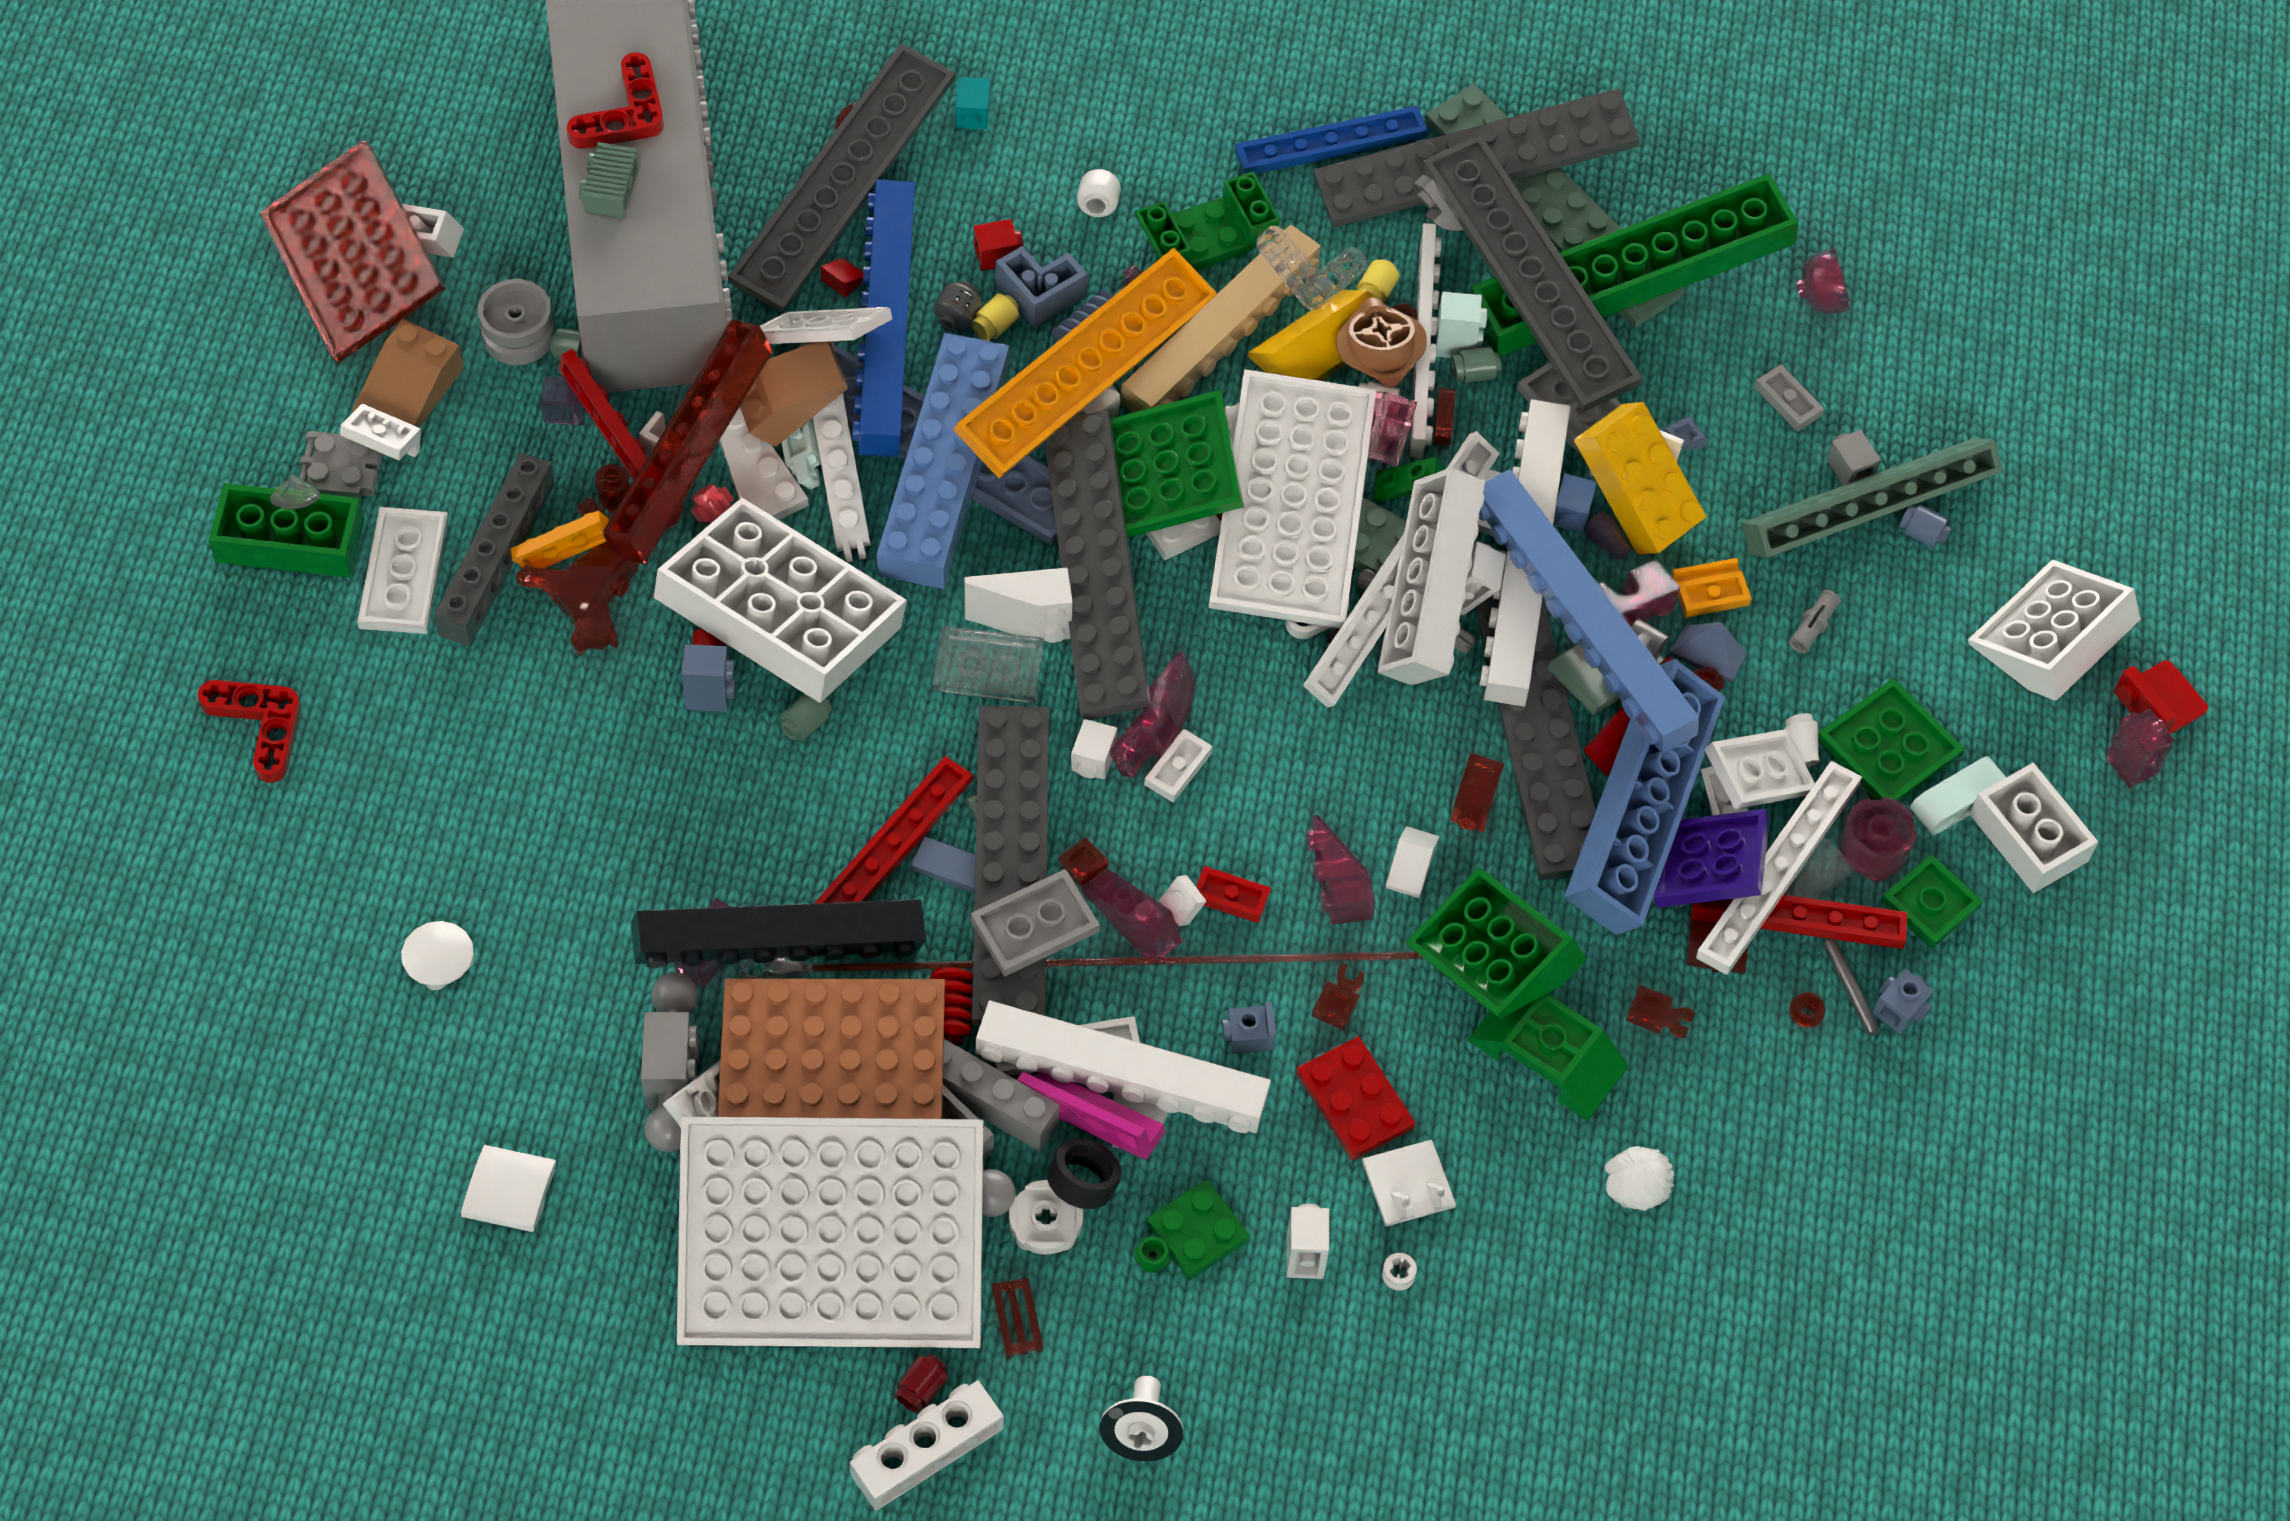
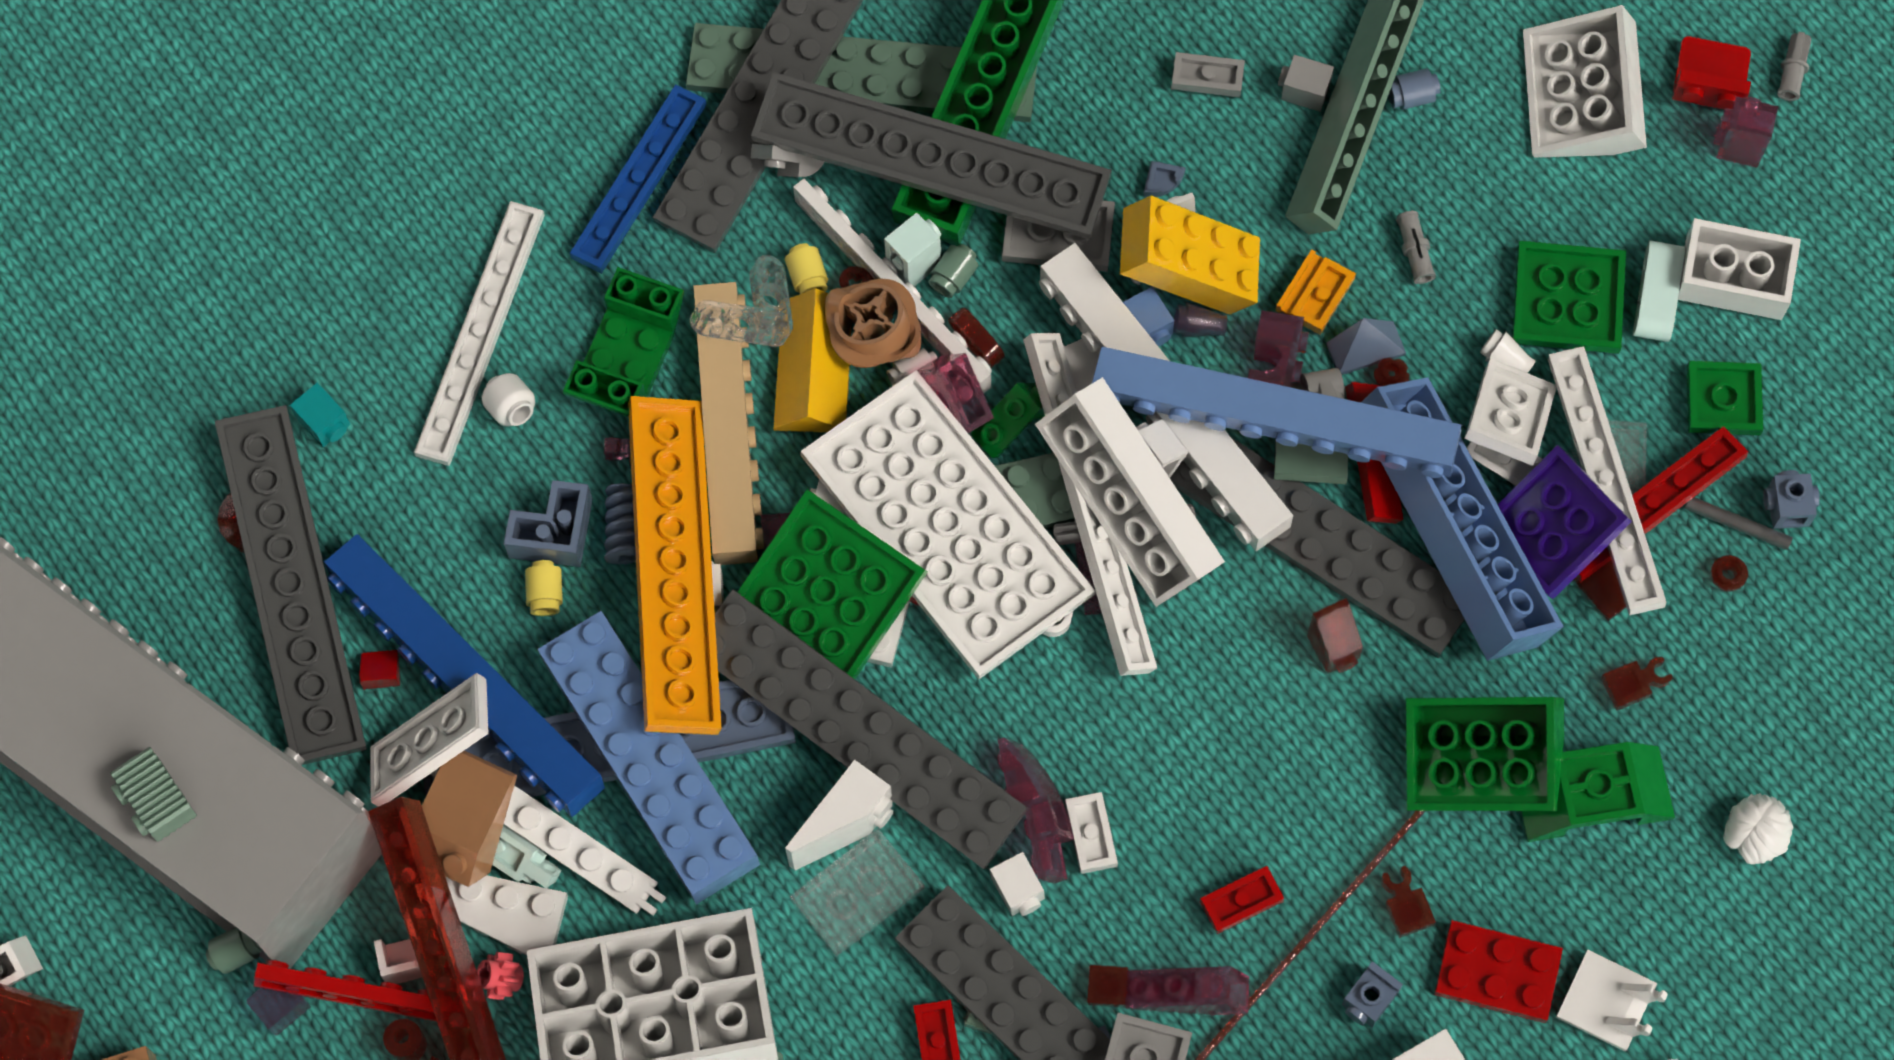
camera: 40 degrees left, 10 degrees up
(516, 321) = (169, 957): light grey wheel -> none
(631, 116) = (101, 720): red beam -> none
(957, 306) = (505, 608): dark grey head -> none
(995, 241) = (476, 523): red brick -> none
(1127, 144) = (479, 334): none -> white tile
(1183, 900) = (1214, 942): white plate -> none
(1345, 881) = (1310, 804): clear pink slope -> none
(1412, 861) = (1339, 735): white slope -> none
(1878, 837) = (1659, 390): clear pink brick -> none
(2230, 747) = (1794, 66): none -> light grey axle

